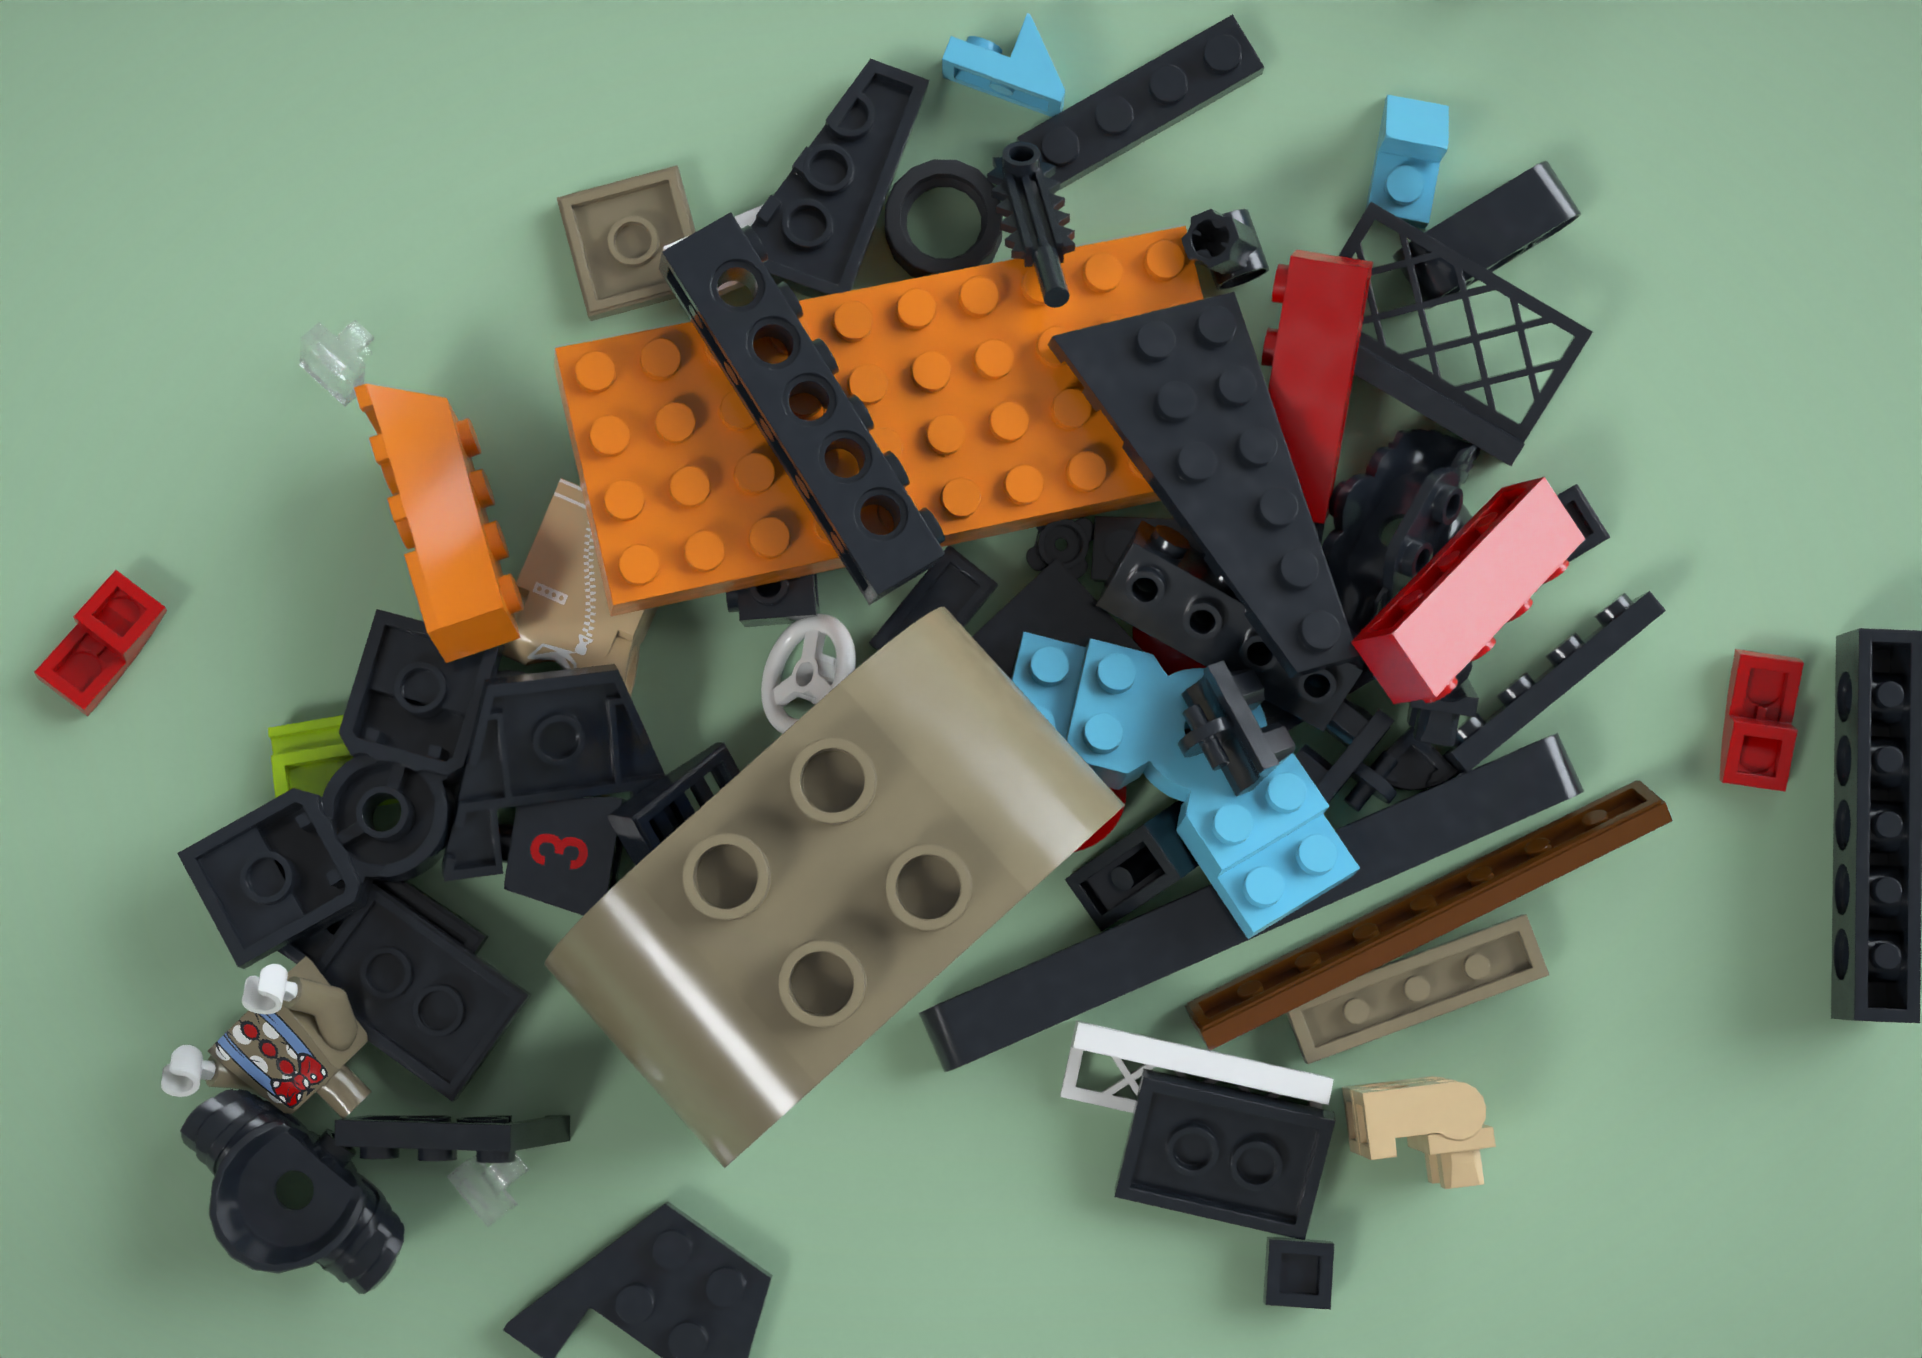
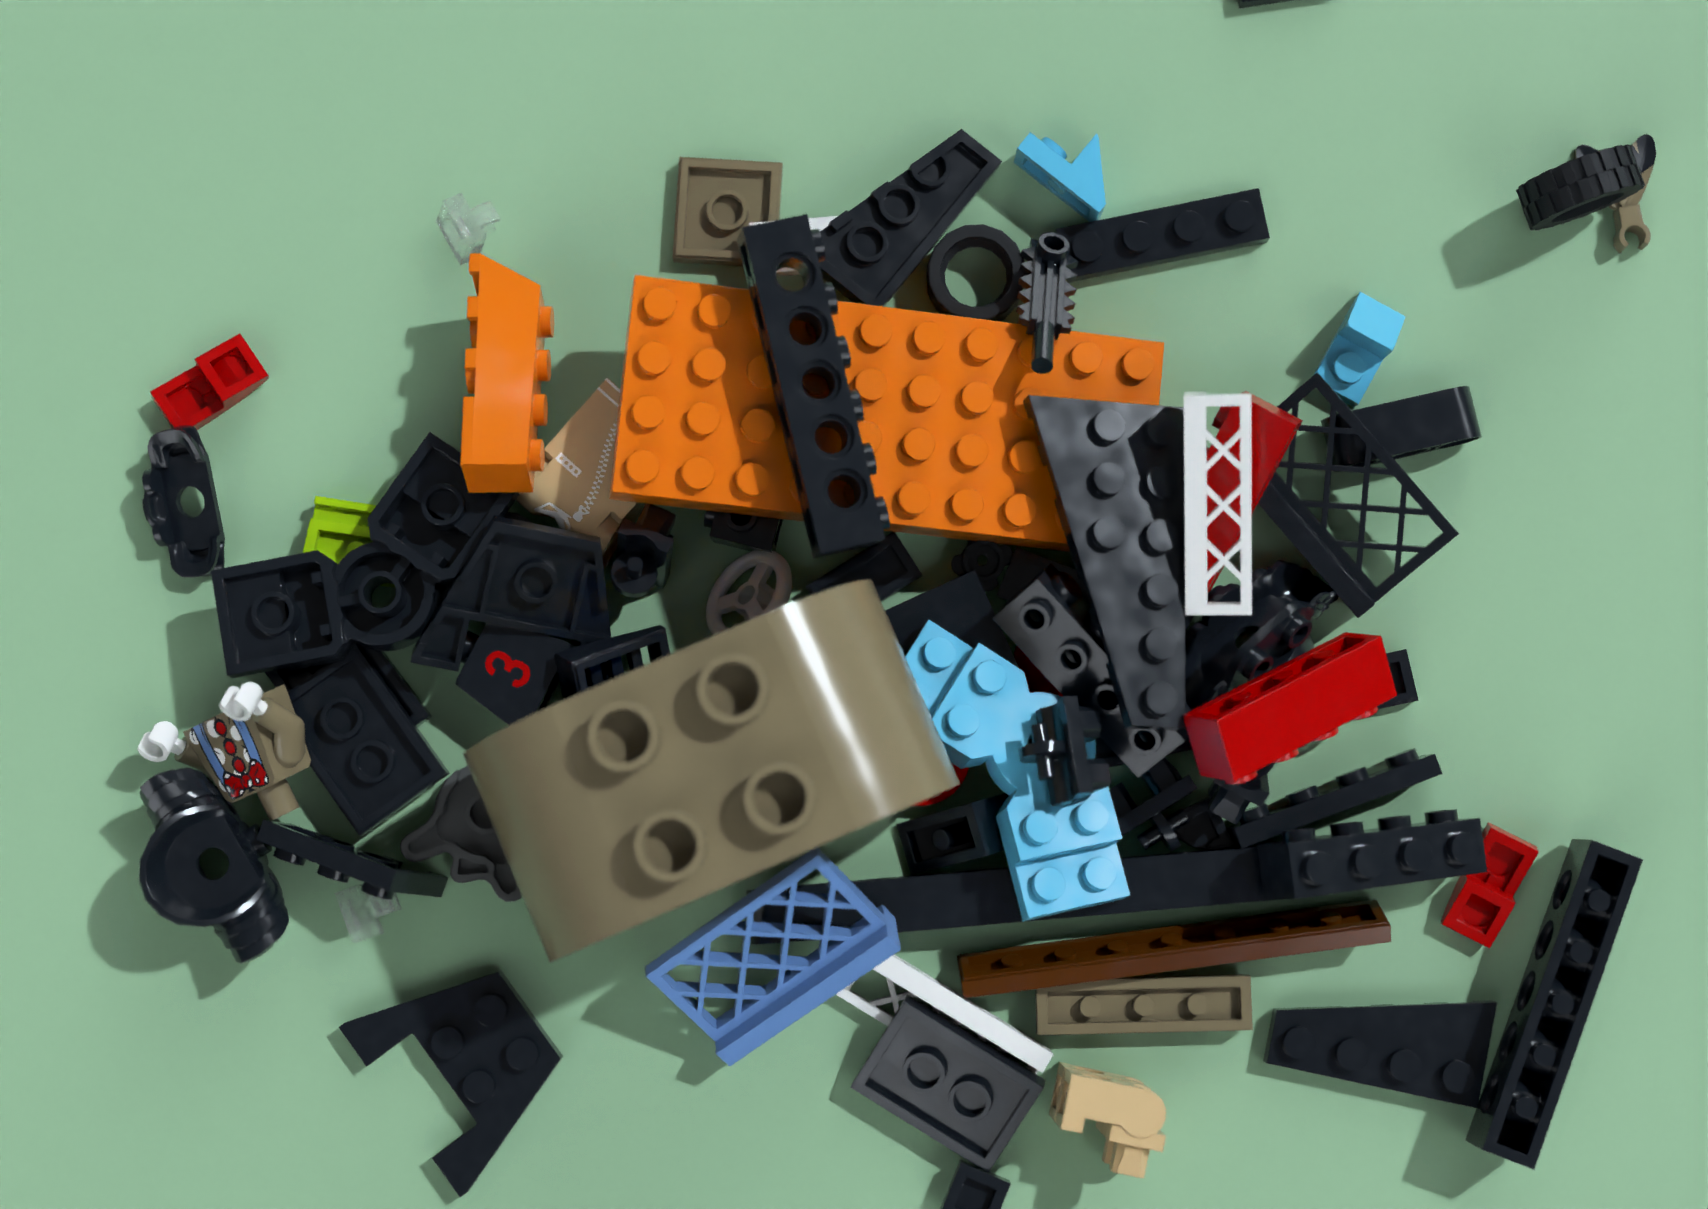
camera: 20 degrees right, 0 degrees up
(95, 743) = (177, 463): none -> black piece
(575, 1054) = (466, 833): none -> dark grey tile
(670, 664) = (643, 552): none -> black hips
(1023, 1091) = (807, 979): none -> medium blue fence
(1226, 247) = (1189, 366): black piece -> none
(1284, 395) = (1196, 504): none -> white fence
(1619, 733) = (1371, 858): none -> black brick
(1726, 938) = (1407, 1048): none -> black wing

